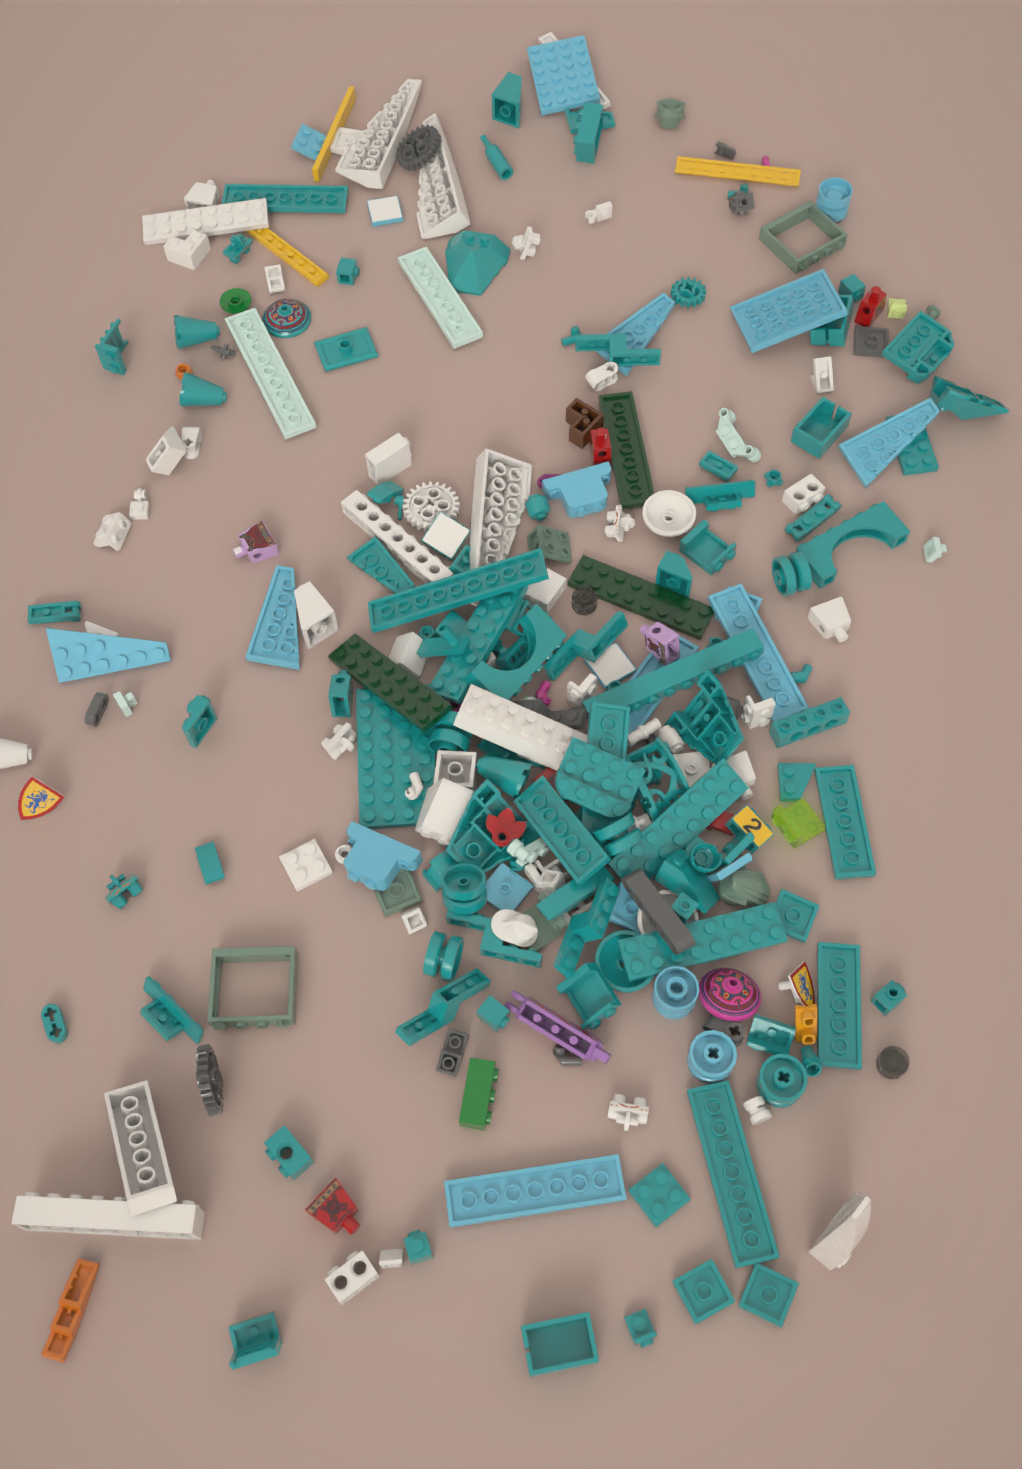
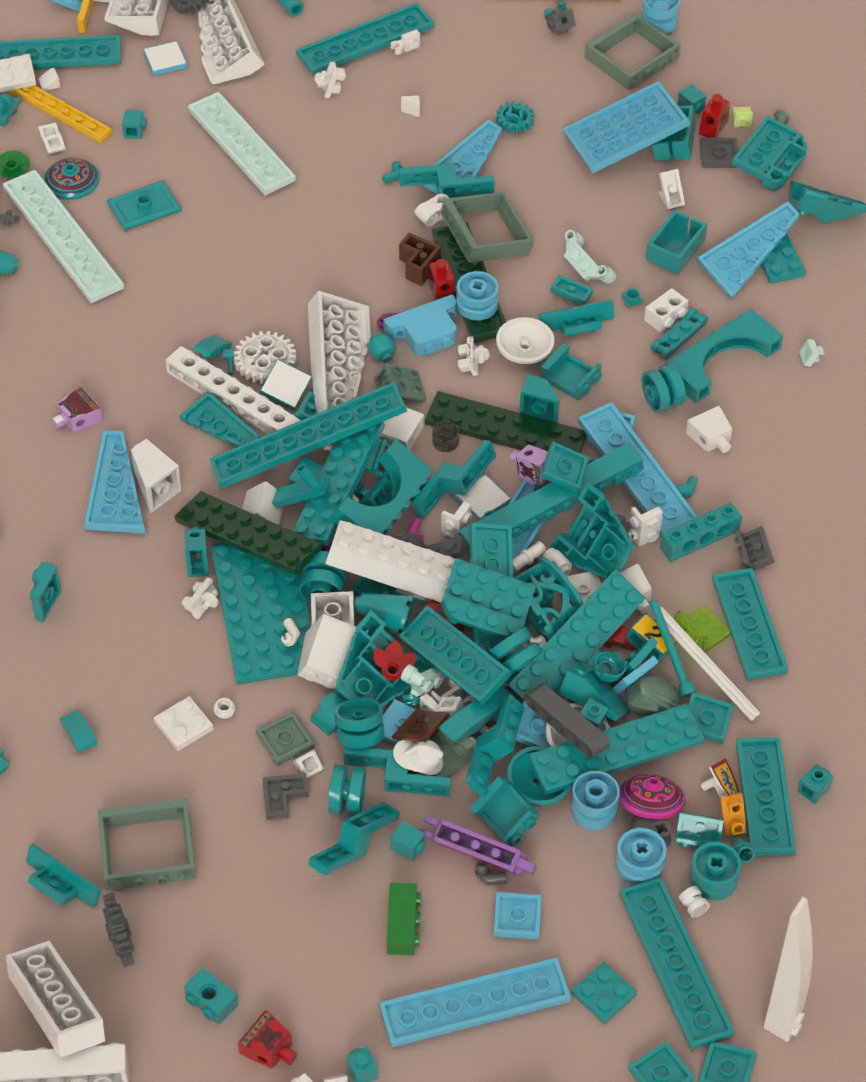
camera: 10 degrees left, 10 degrees down
(281, 224) = (49, 80): none -> white slope
(377, 858) = (261, 706): medium azure brick -> none
(381, 944) = (279, 789): none -> dark grey plate
(388, 459) = (211, 312): white brick -> none
(426, 630) = (279, 481): teal plate -> none
(452, 1052) = (369, 884): dark grey slope -> none
(474, 261) = (274, 102): teal wedge -> none
(520, 897) = (420, 725): none -> reddish brown piece
(562, 206) = (364, 38): none -> teal plate
(586, 1103) = (517, 915): none -> medium azure plate
(595, 273) = (410, 105): none -> white slope
(628, 1113) = (561, 918): white hips -> none
(630, 465) = (477, 295): none -> medium azure wheel
(648, 373) = (454, 207): none -> sand green window
(688, 648) = (564, 467): none -> teal tile
(776, 881) = (686, 687): none -> teal piece
(793, 780) = (691, 589): teal wing -> none
(798, 861) = (710, 667): none -> white axle
(858, 744) = (754, 548): none -> dark grey bracket
(892, 1063) = (826, 844): clear smoke wheel -> none

